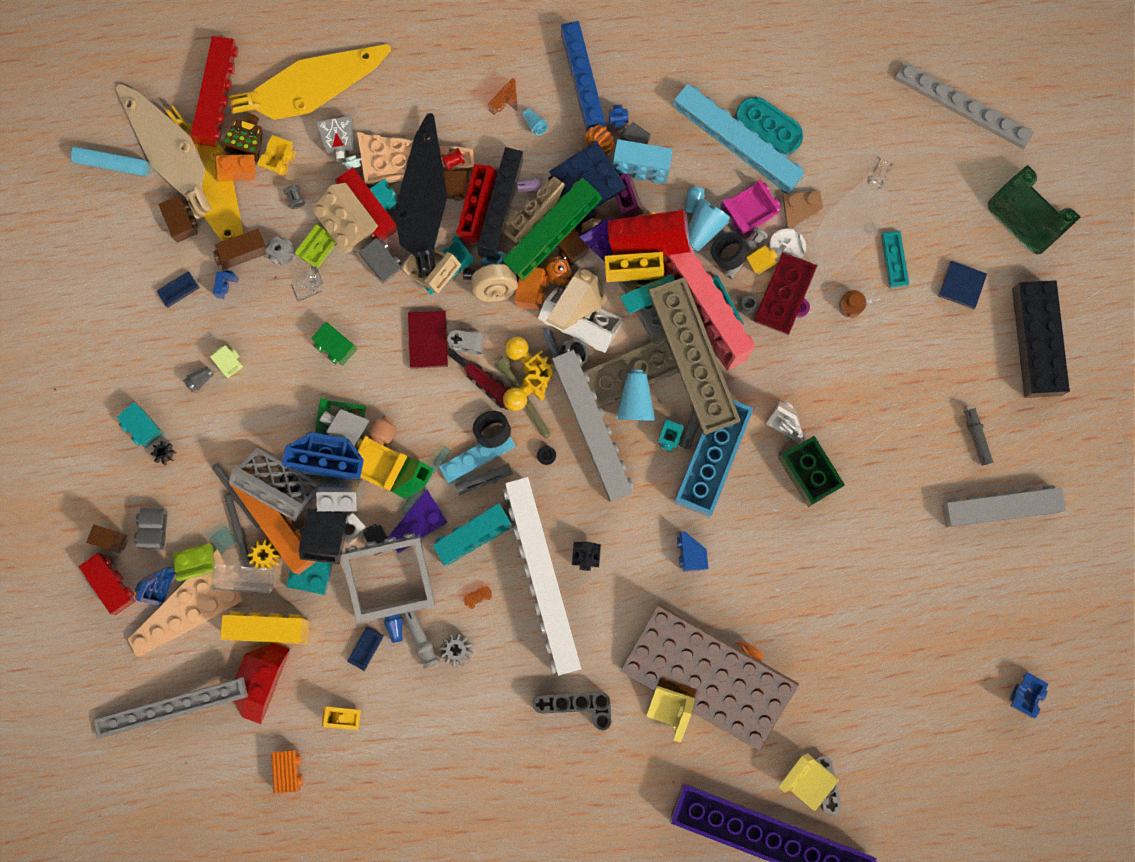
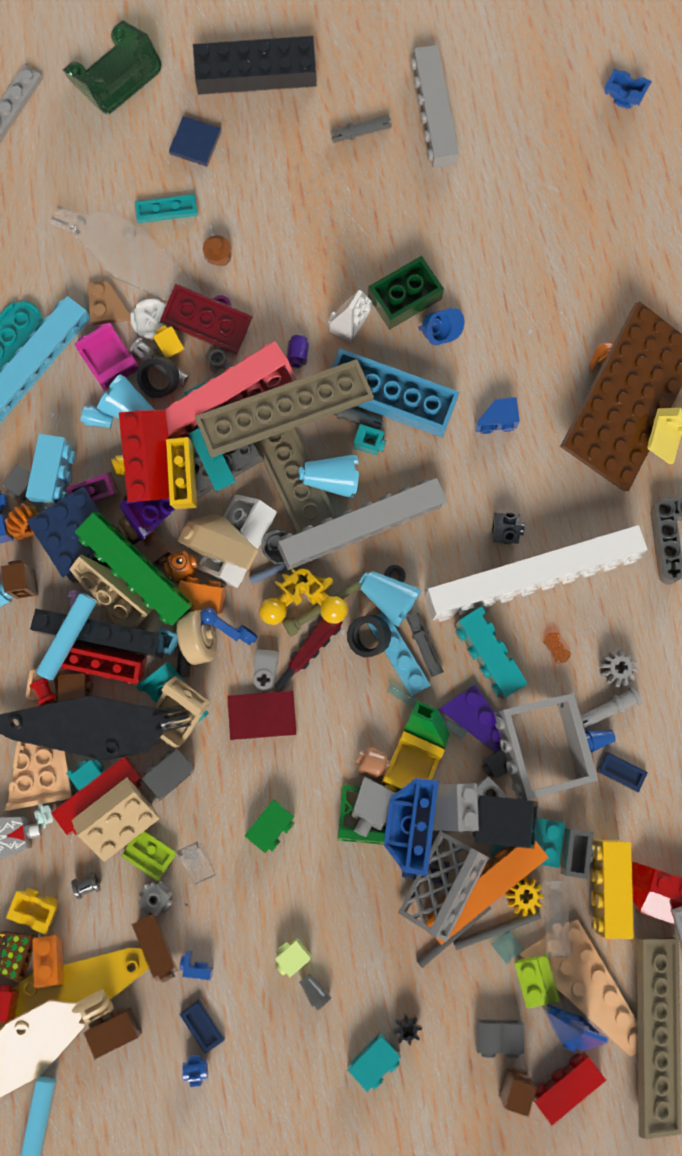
camera: 90 degrees left, 0 degrees up
(141, 662) = (658, 1038): none -> dark tan plate
(144, 282) = (195, 1070): none -> blue gear
(296, 601) = (577, 853): none -> dark grey brick
(495, 174) = (66, 636): none -> medium azure brick
(499, 324) = (210, 617): none -> blue piece
(526, 448) = (389, 595): none -> medium azure cone
(548, 138) = (19, 580): none -> reddish brown brick
(755, 374) = (297, 351): none -> dark purple brick
(779, 505) = (443, 326): none -> blue piece

